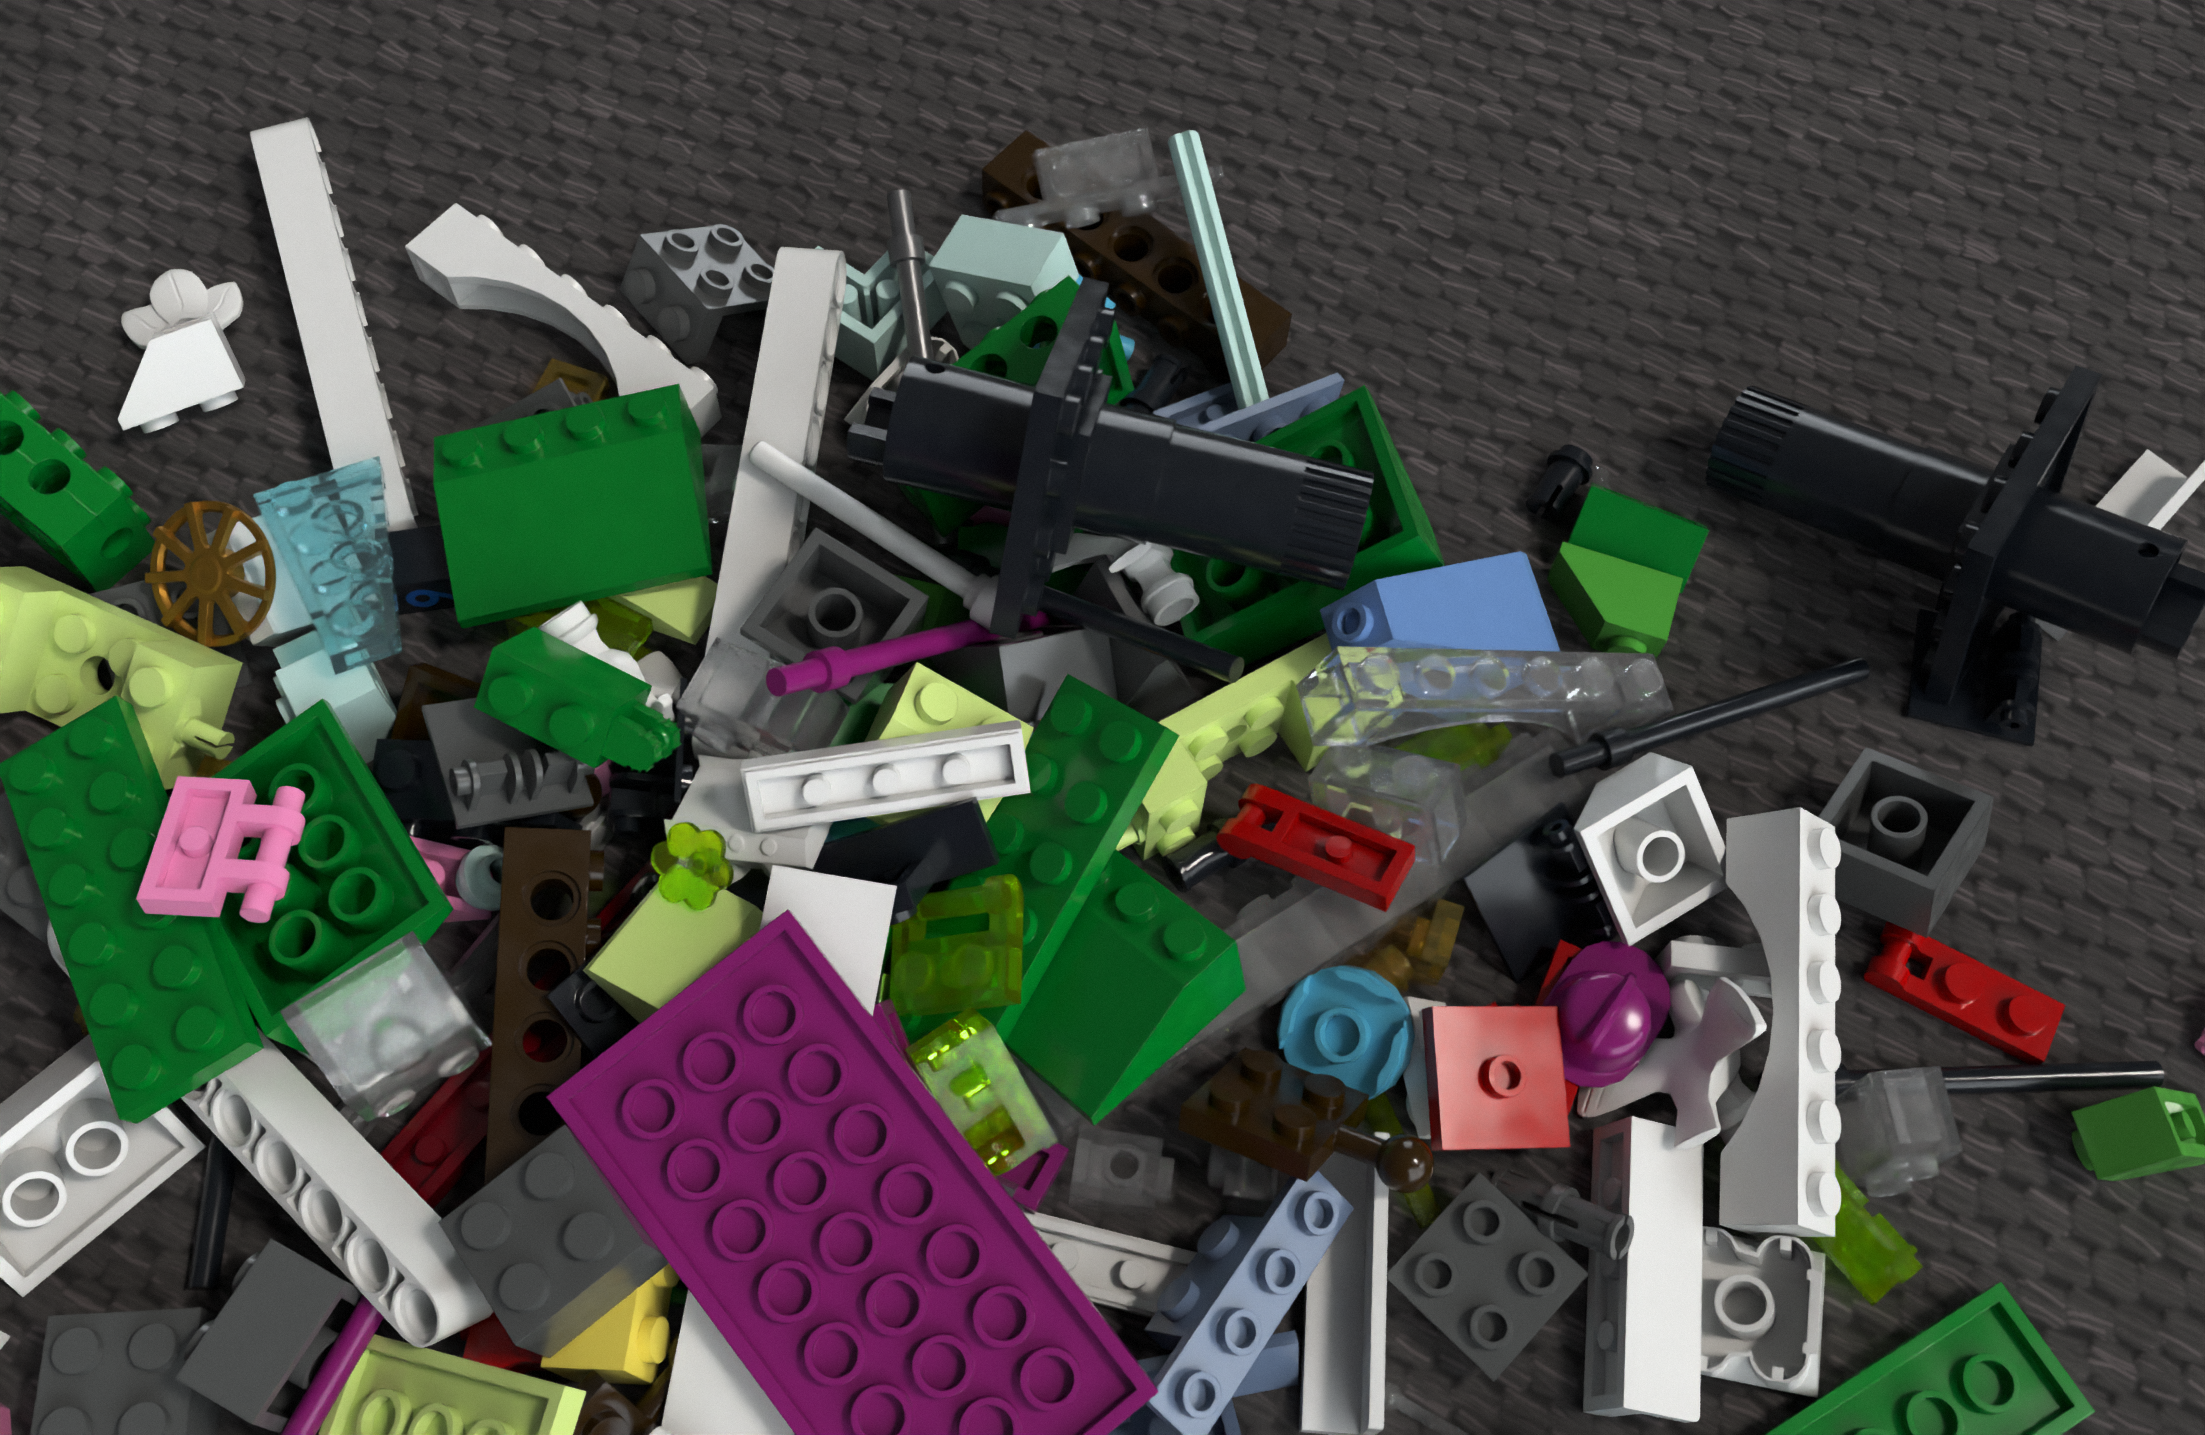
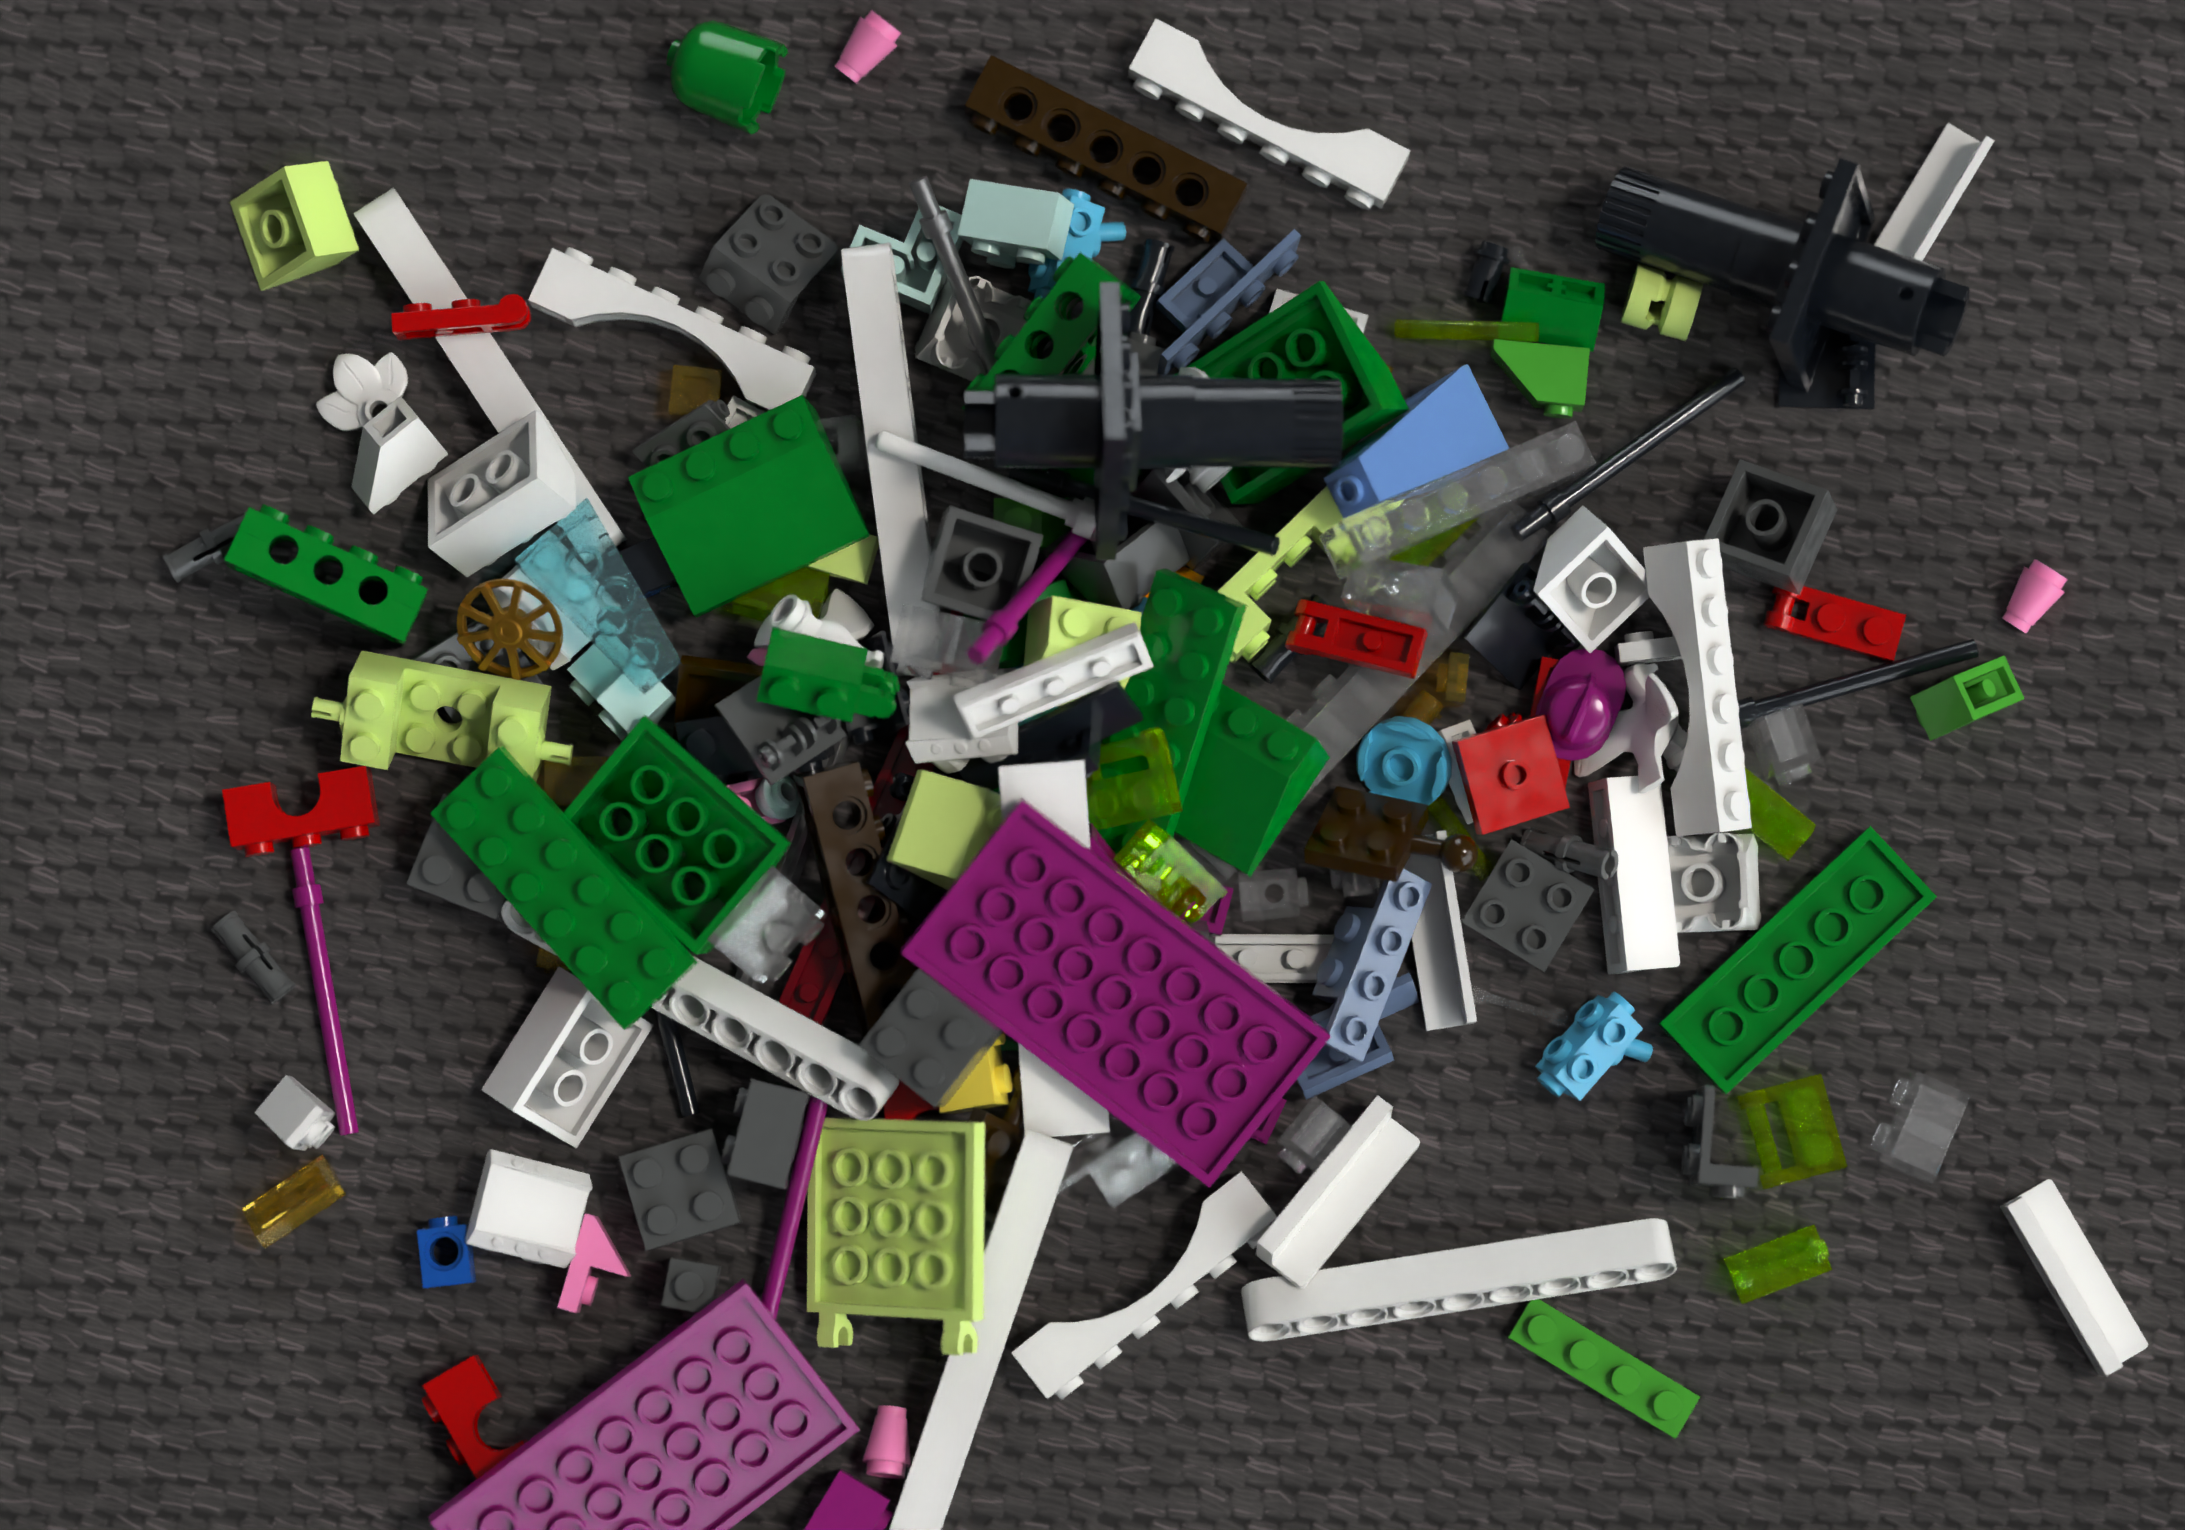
camera: 10 degrees left, 20 degrees up
(186, 129) = (294, 224): none -> yellowish green slope
(201, 843) = (613, 843): bright pink plate -> none
(277, 436) = (499, 495): none -> white slope
(312, 237) = (462, 318): none -> red plate
(692, 866) = (939, 774): clear neon green plant -> none
(726, 88) = (726, 73): none -> green cylinder
(893, 108) = (867, 46): none -> bright pink cone
(1098, 178) = (1067, 106): clear bracket -> none
(1217, 269) = (1183, 175): light aqua axle -> none
(1418, 329) = (1356, 161): none -> white arch
(1525, 532) = (1466, 330): none -> clear neon green bar
(1797, 565) = (1679, 300): none -> yellowish green wheel

